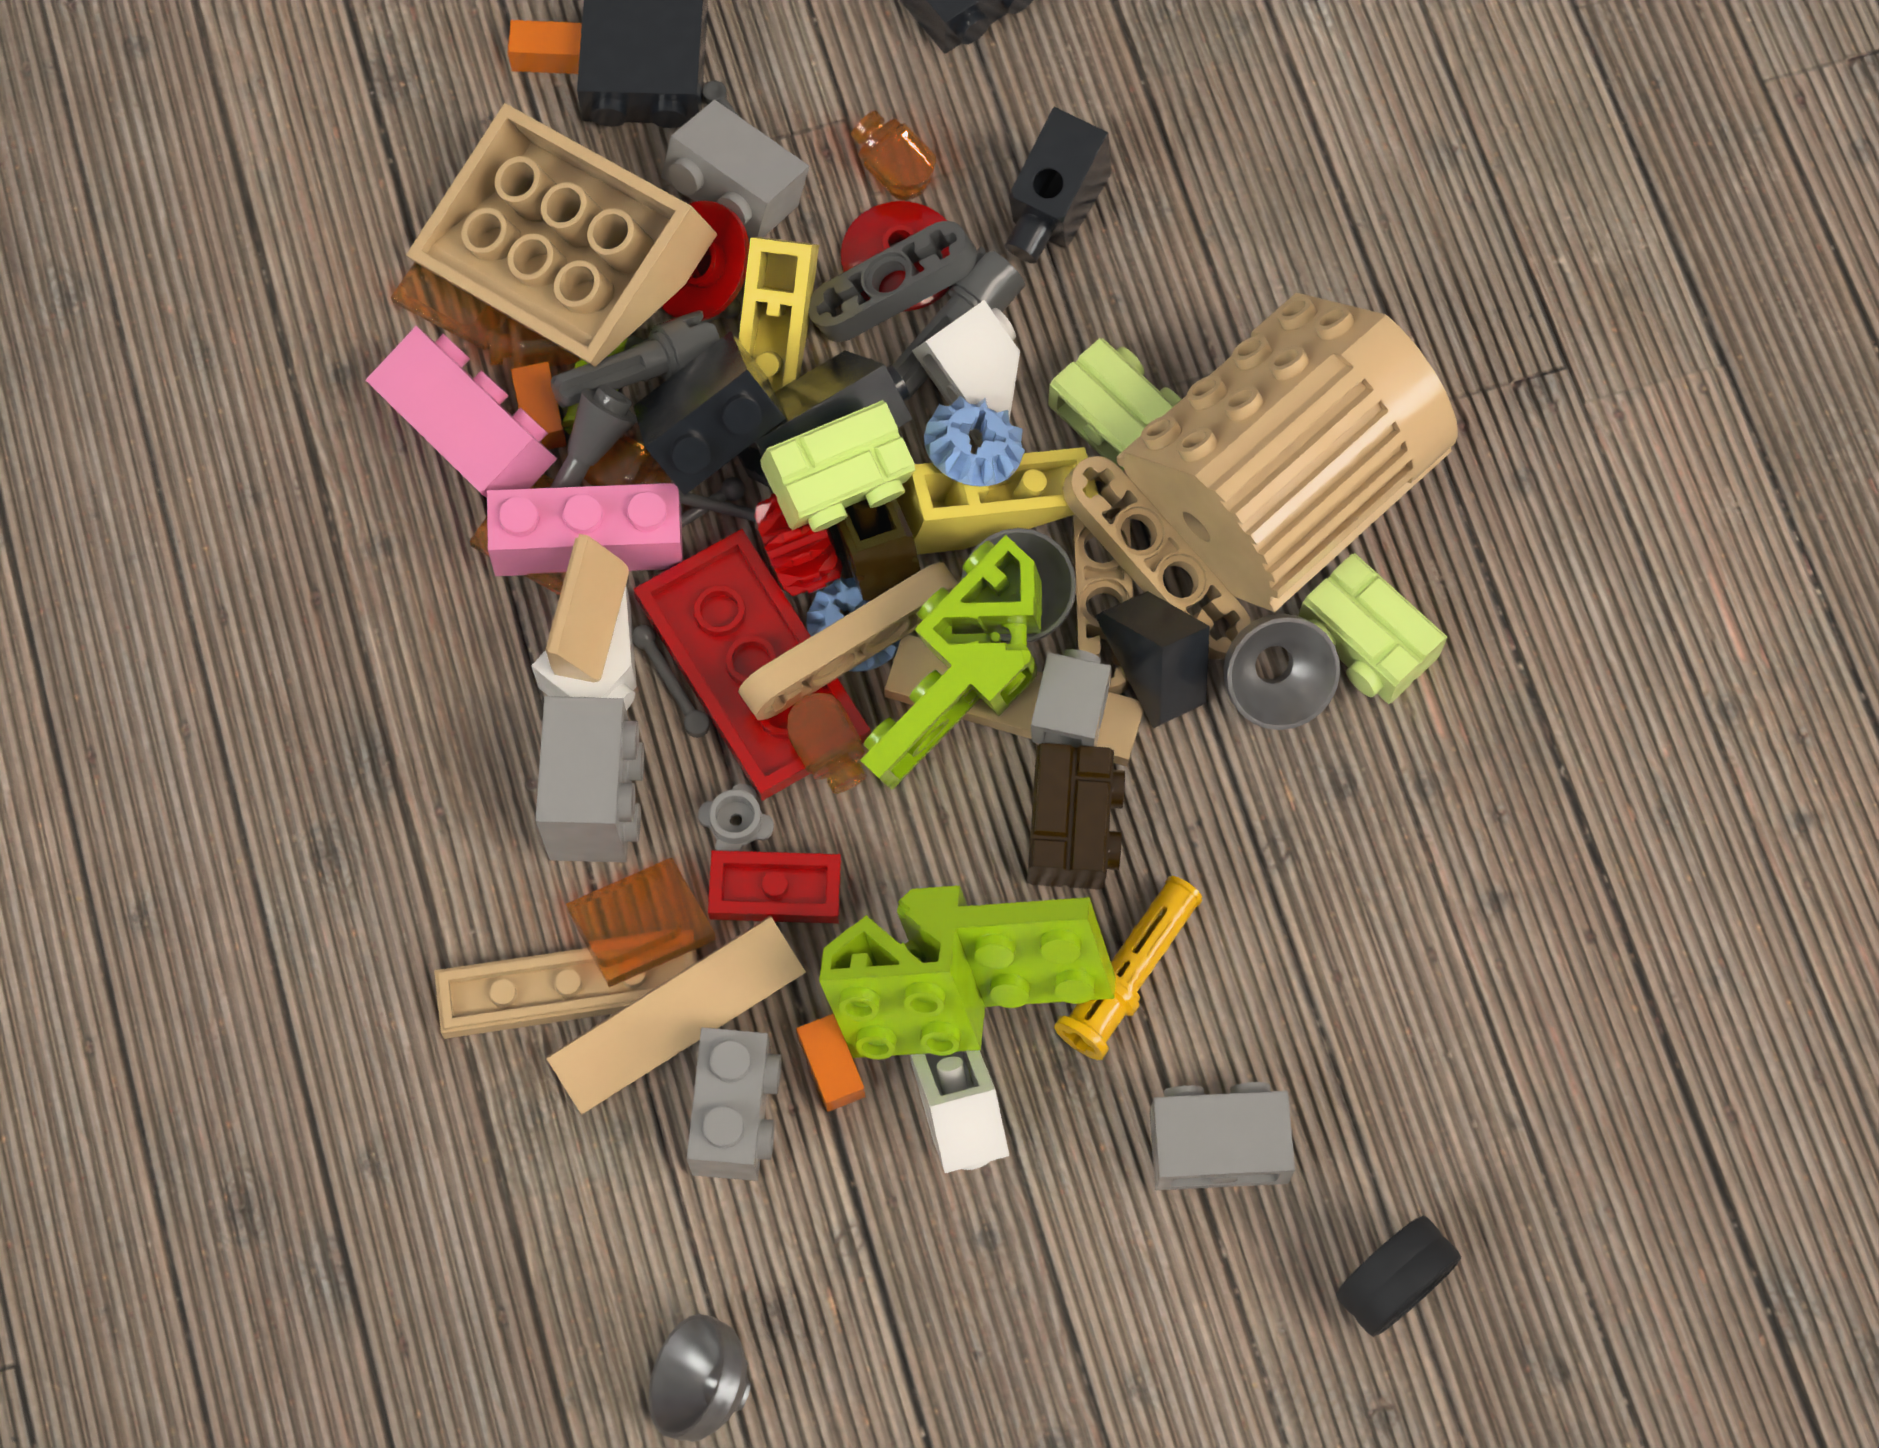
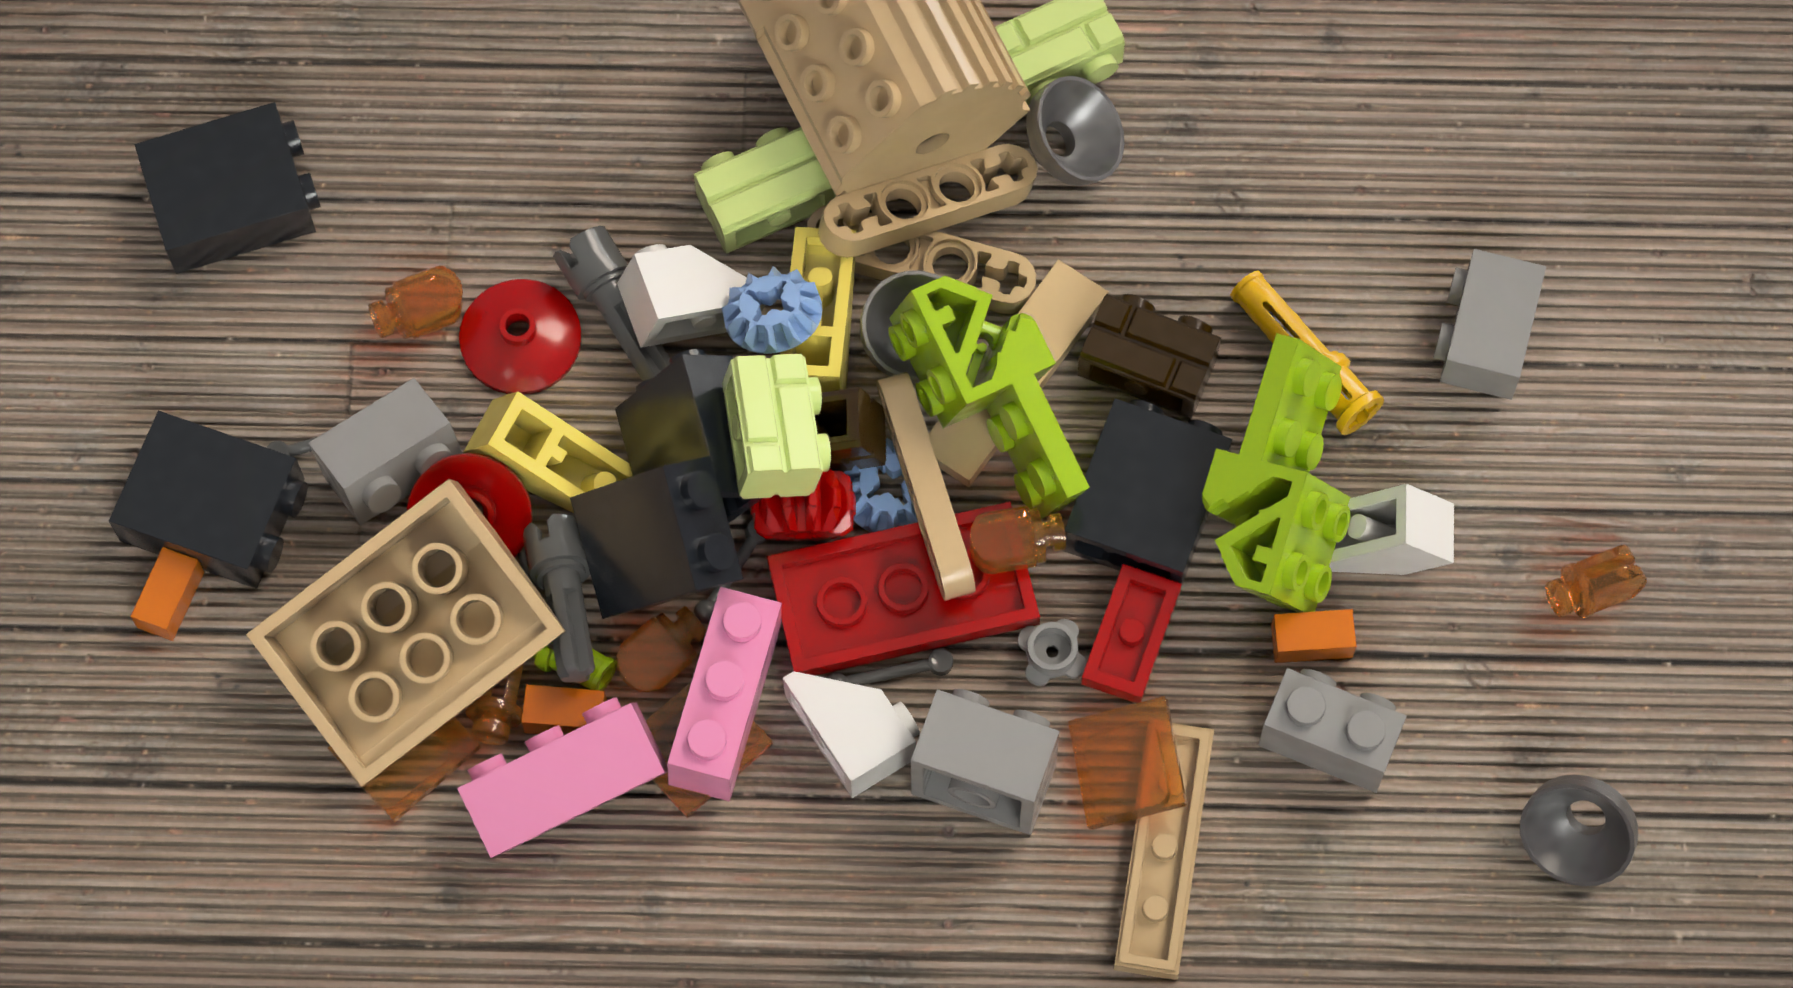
camera: 70 degrees left, 0 degrees up
(586, 611) = (820, 711): tan slope -> none
(598, 425) = (626, 646): dark grey cone -> none
(674, 1013) = (1230, 755): tan tile -> none
(917, 286) = (575, 296): dark grey beam -> none
(922, 839) = (1145, 491): none -> black brick
(976, 1329) = (1596, 583): none -> clear orange arm
(1057, 184) = (503, 147): black torso -> none
(1071, 699) = (1058, 307): light grey brick -> none
(1160, 654) = (1019, 228): black slope -> none
(1398, 1275) = (1657, 219): black tyre -> none

